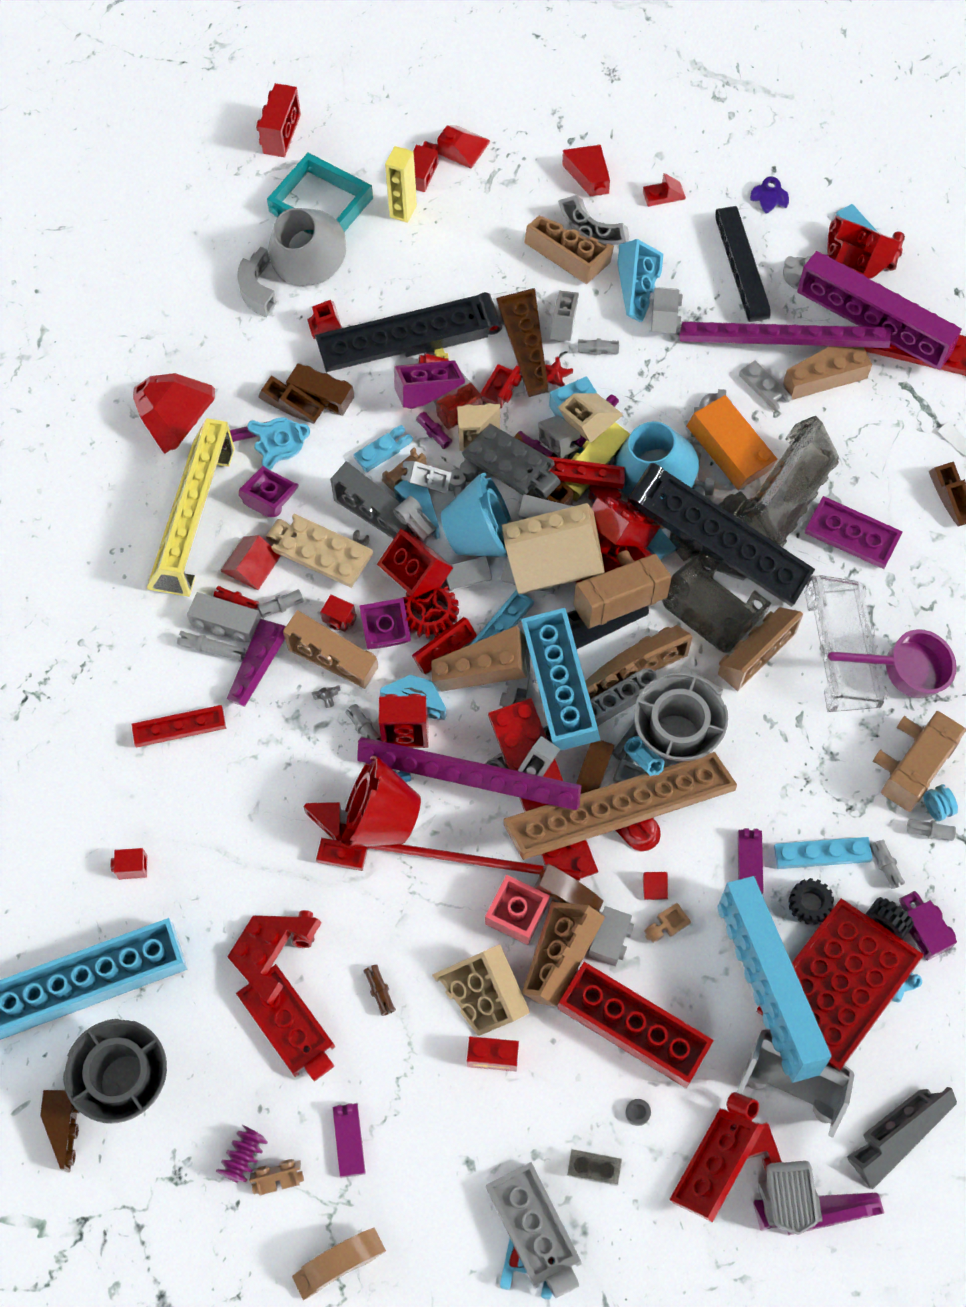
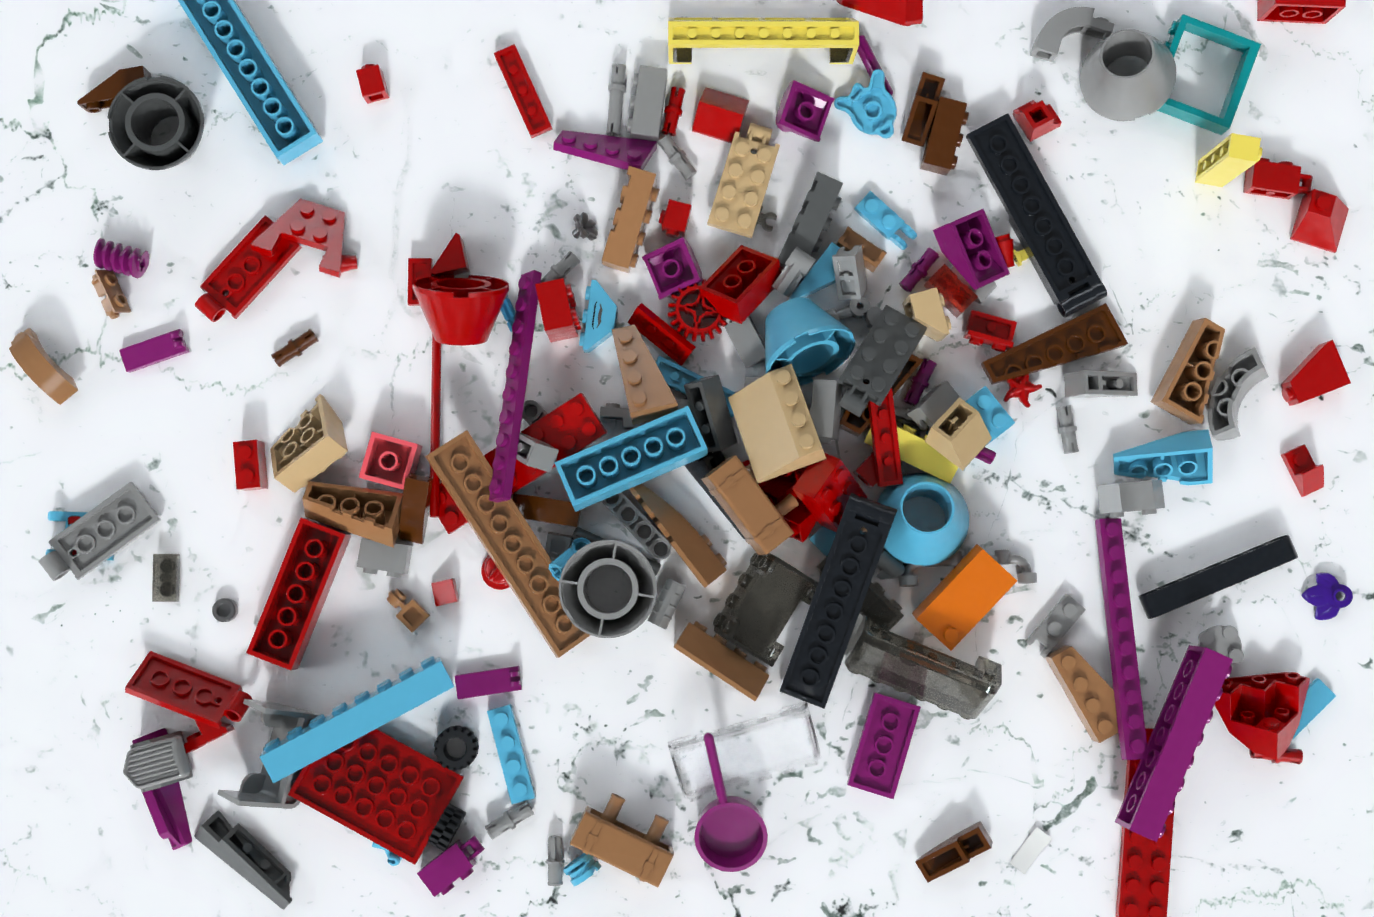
camera: 75 degrees right, 20 degrees up
(510, 610) = (711, 412): none -> dark grey brick

